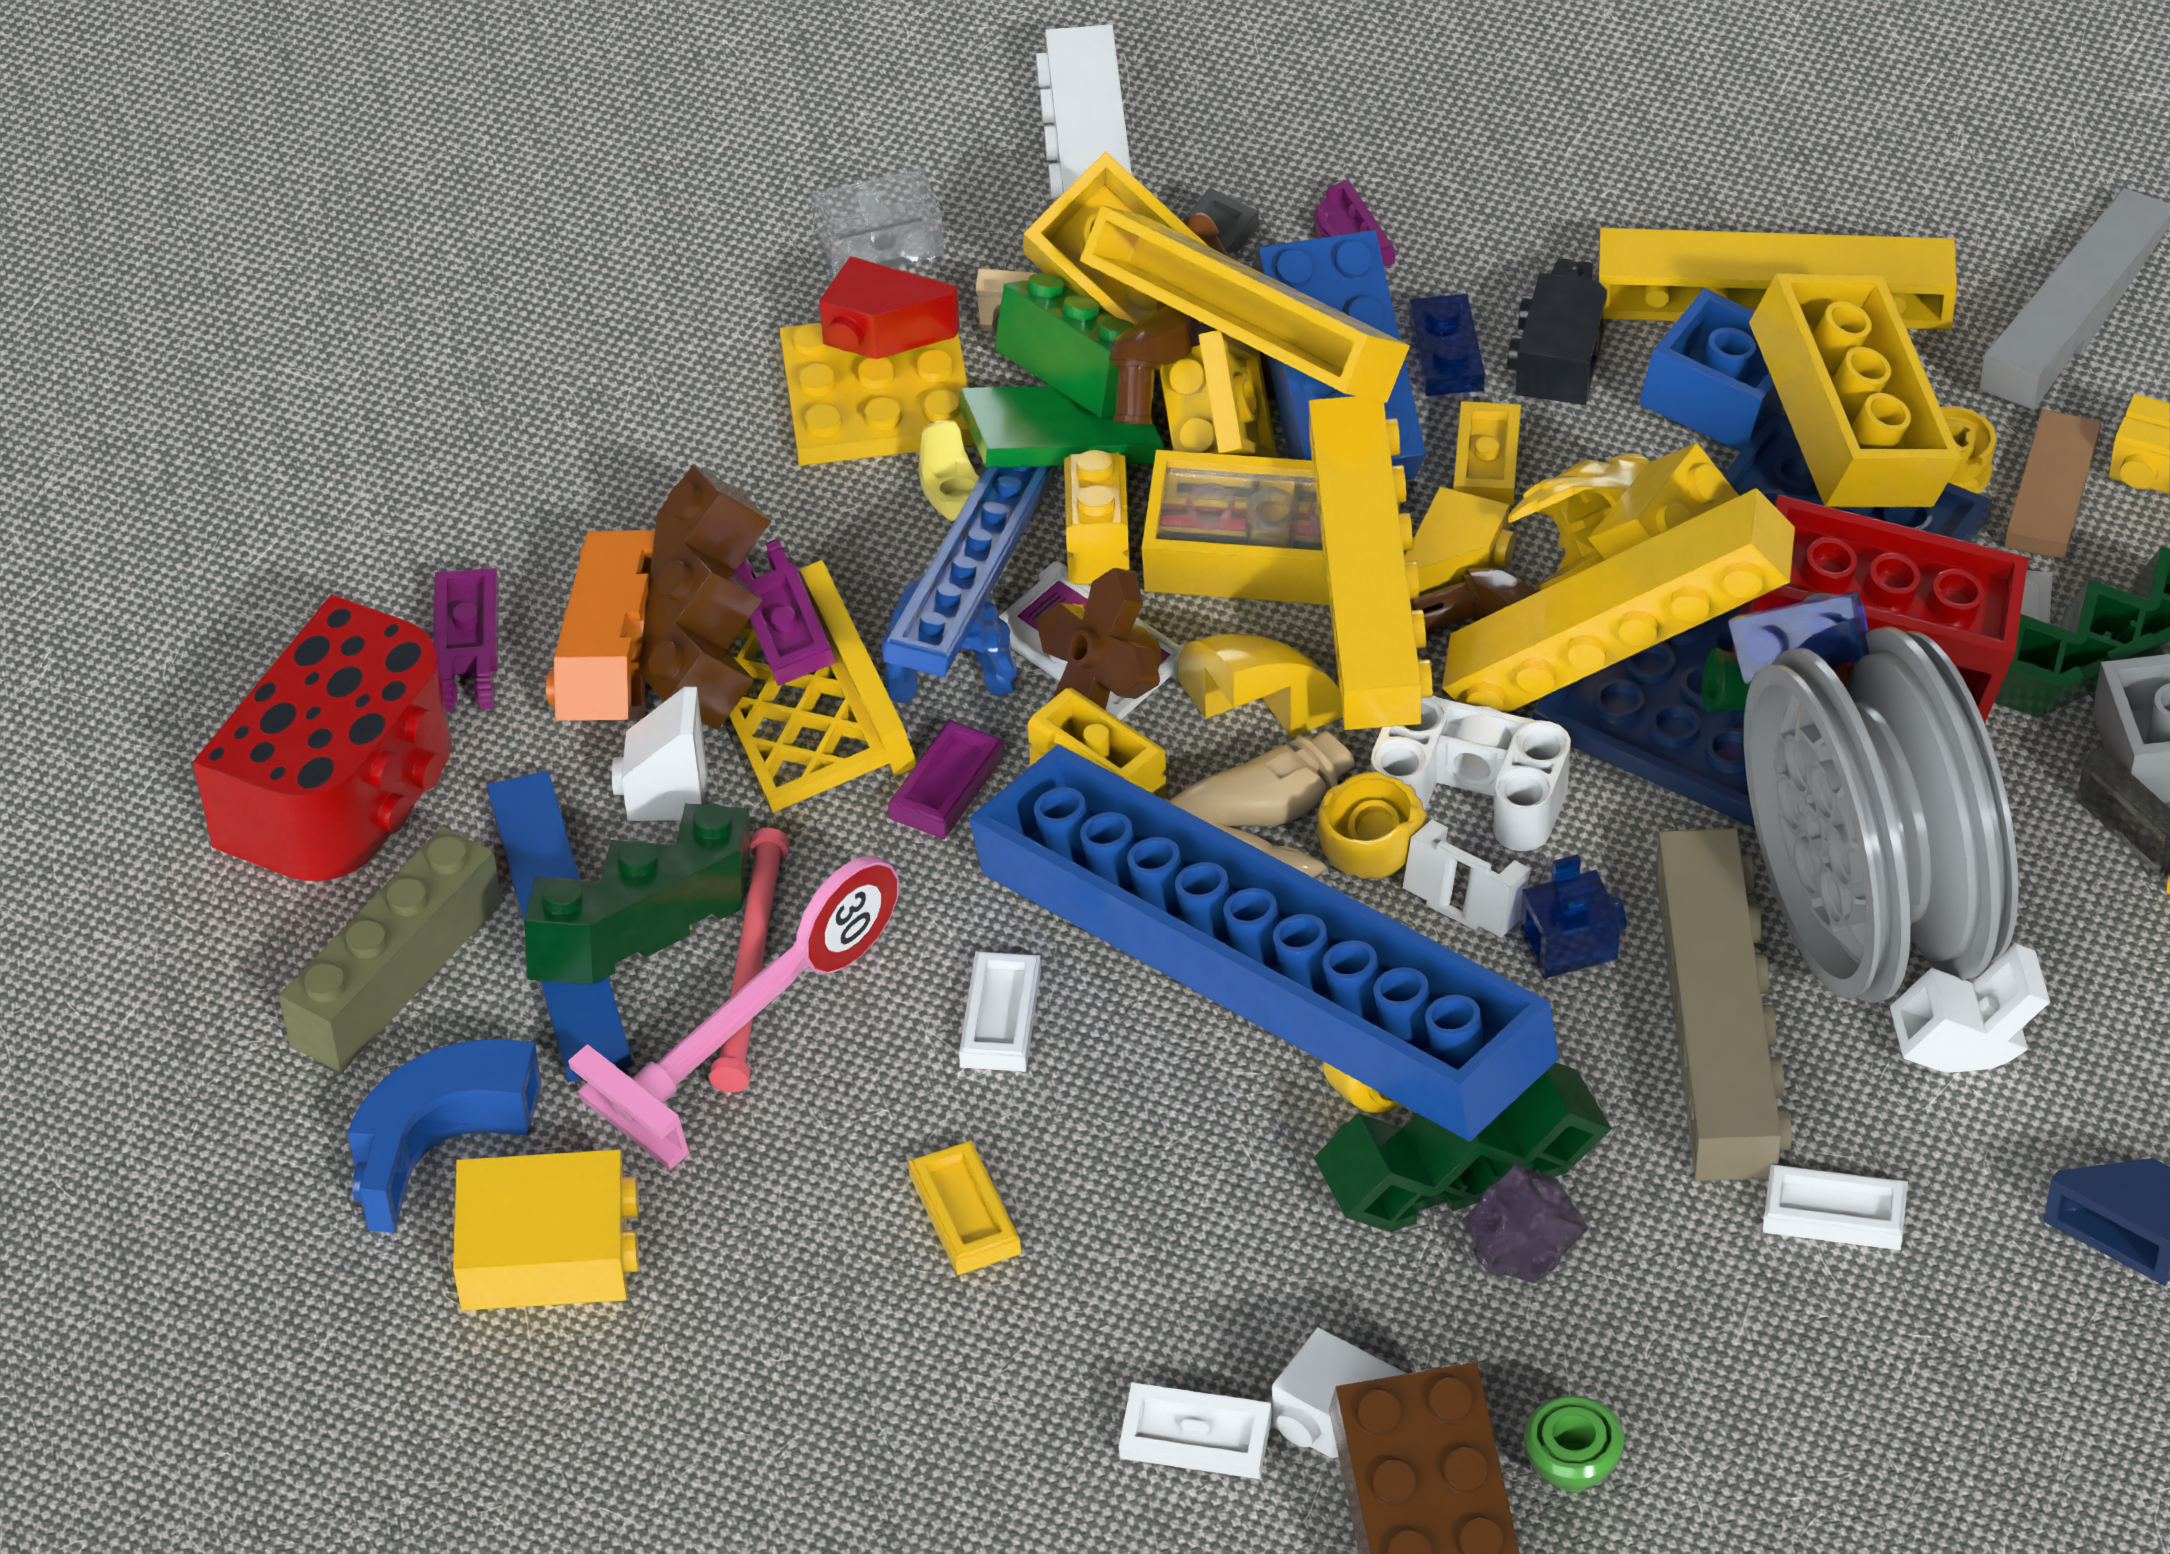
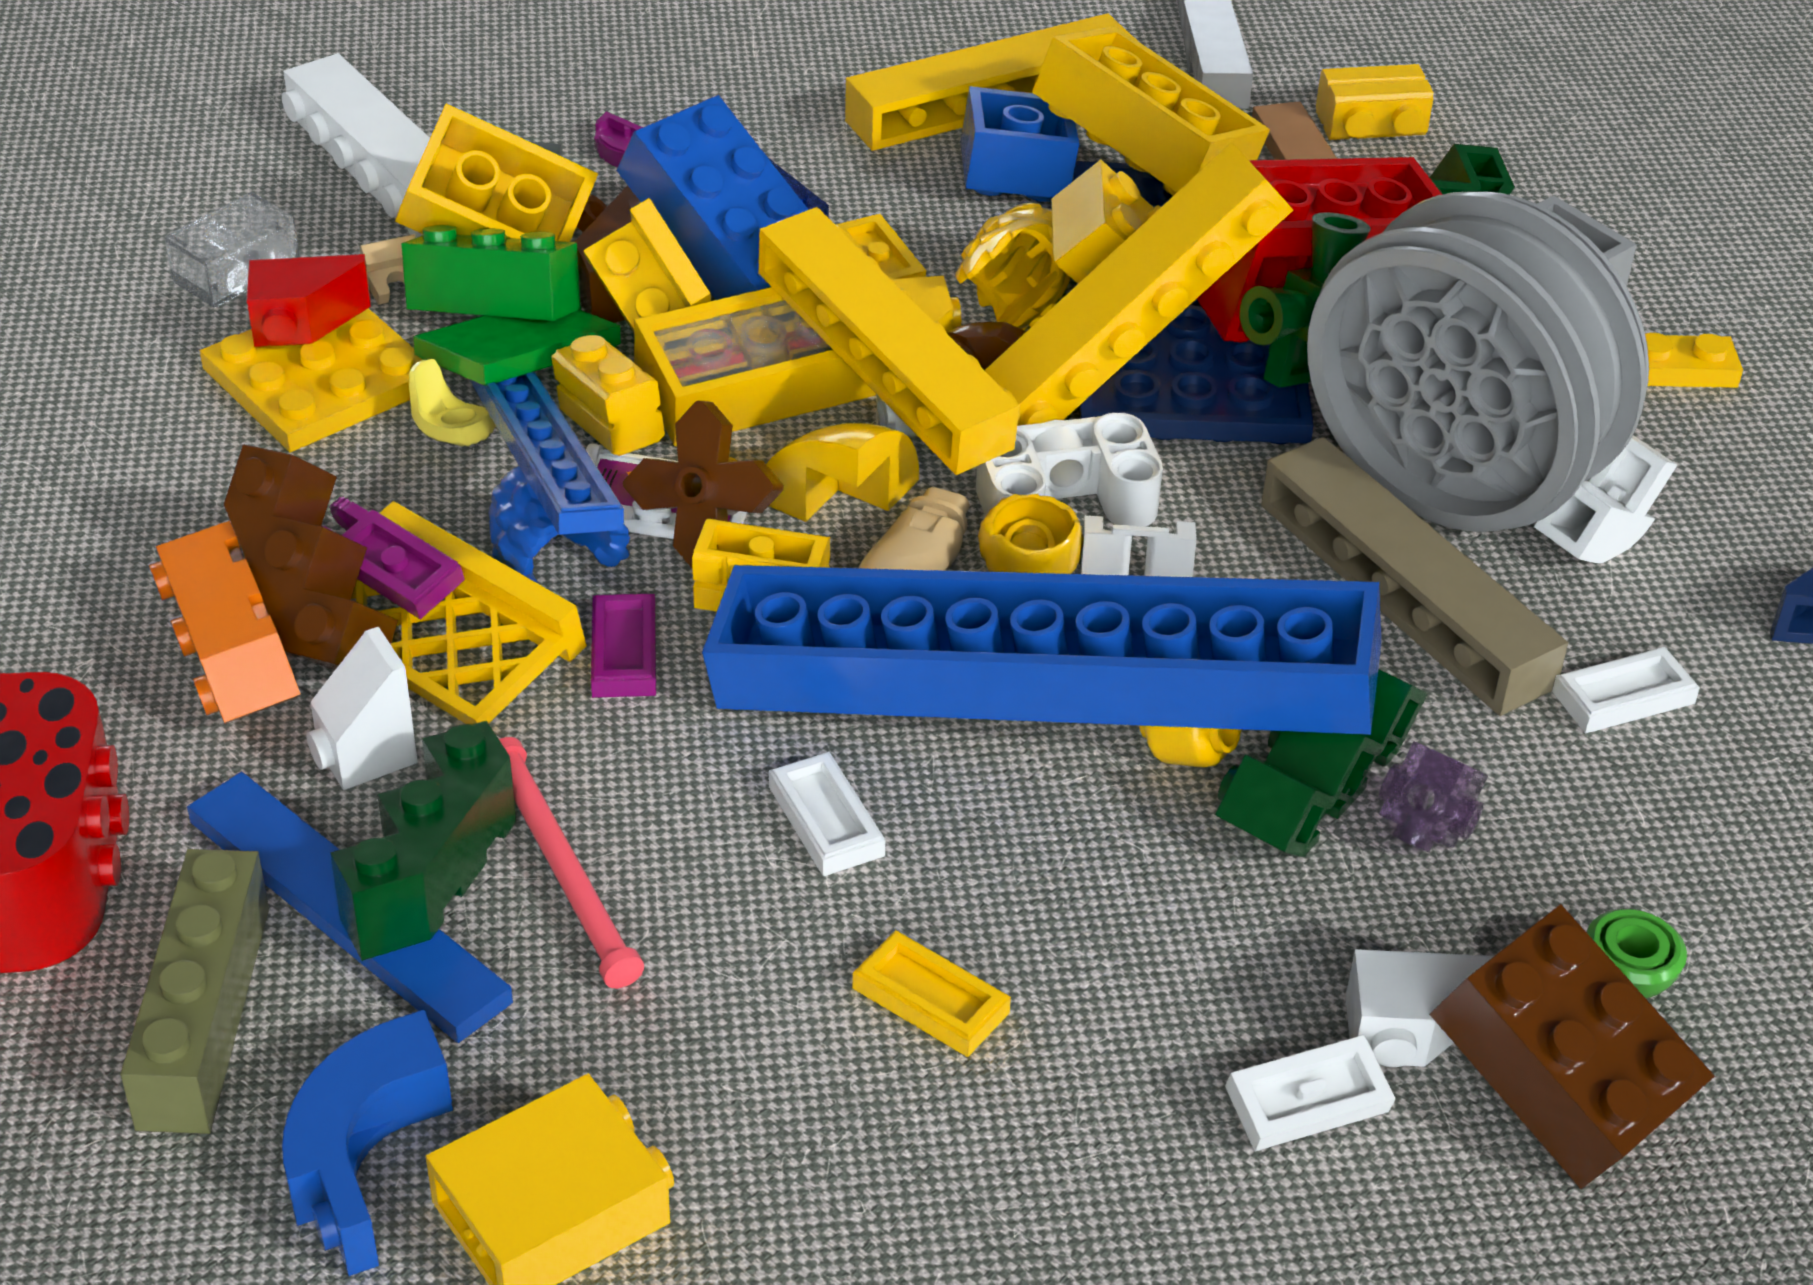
camera: 35 degrees left, 5 degrees down
(467, 631) = (63, 651): magenta hinge -> none
(833, 933) = (558, 1027): bright pink piece -> none
(1141, 352) = (579, 243): reddish brown arm -> none
(1245, 304) = (656, 168): yellow brick -> none
(1559, 335) = (868, 162): black hinge -> none
(1571, 920) = (1249, 543): clear blue brick -> none
(1827, 626) = (1315, 250): clear blue plate -> none

